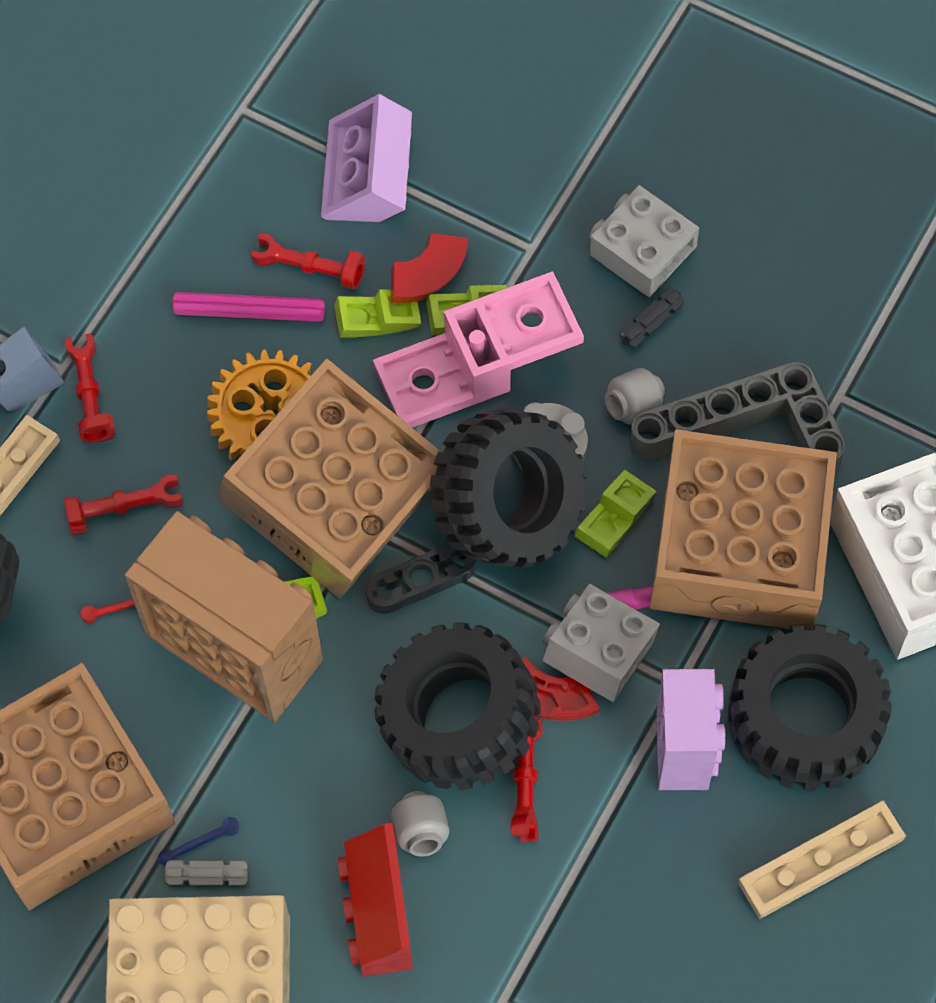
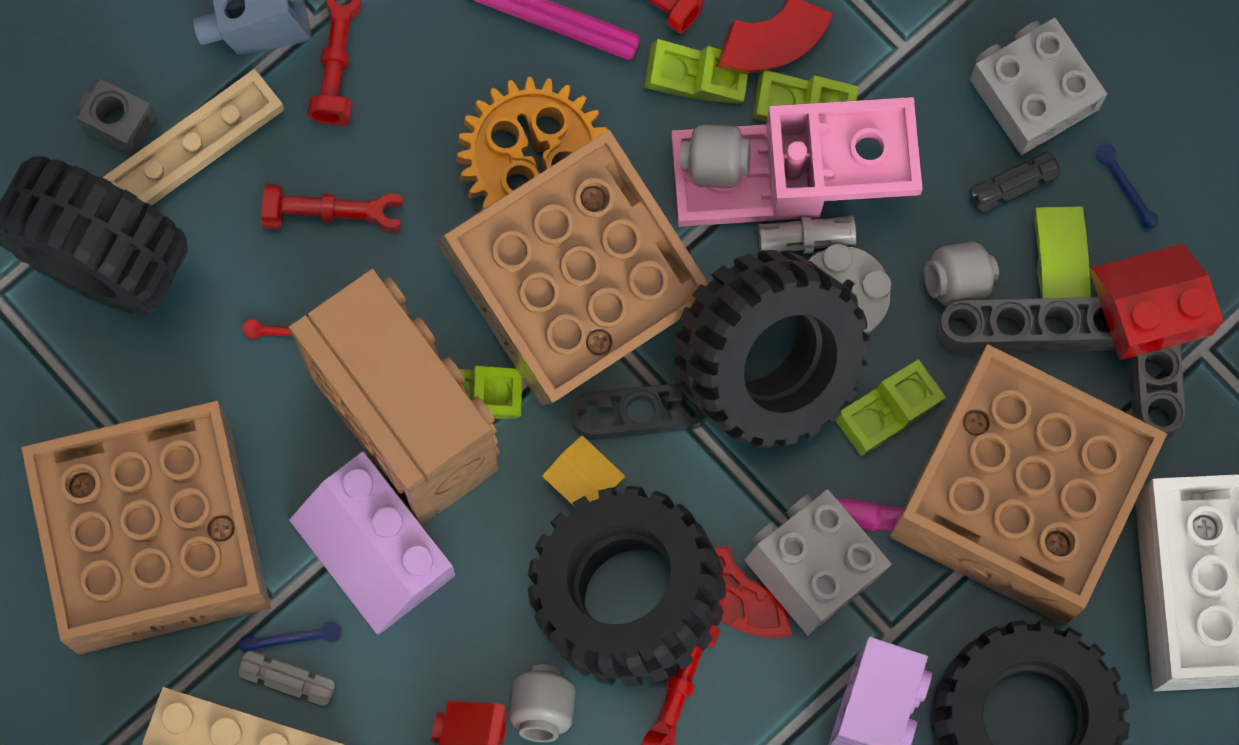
camera: 15 degrees right, 10 degrees up
(241, 744) = (371, 543): none -> lavender slope
(388, 634) = (583, 472): none -> yellow piece
(414, 364) = (716, 156): none -> light grey head
(511, 401) = (807, 234): none -> light grey pin
(706, 355) = (1062, 252): none -> lime slope
(714, 278) = (1106, 155): none -> clear blue hinge
(793, 364) = (1156, 301): none -> red slope

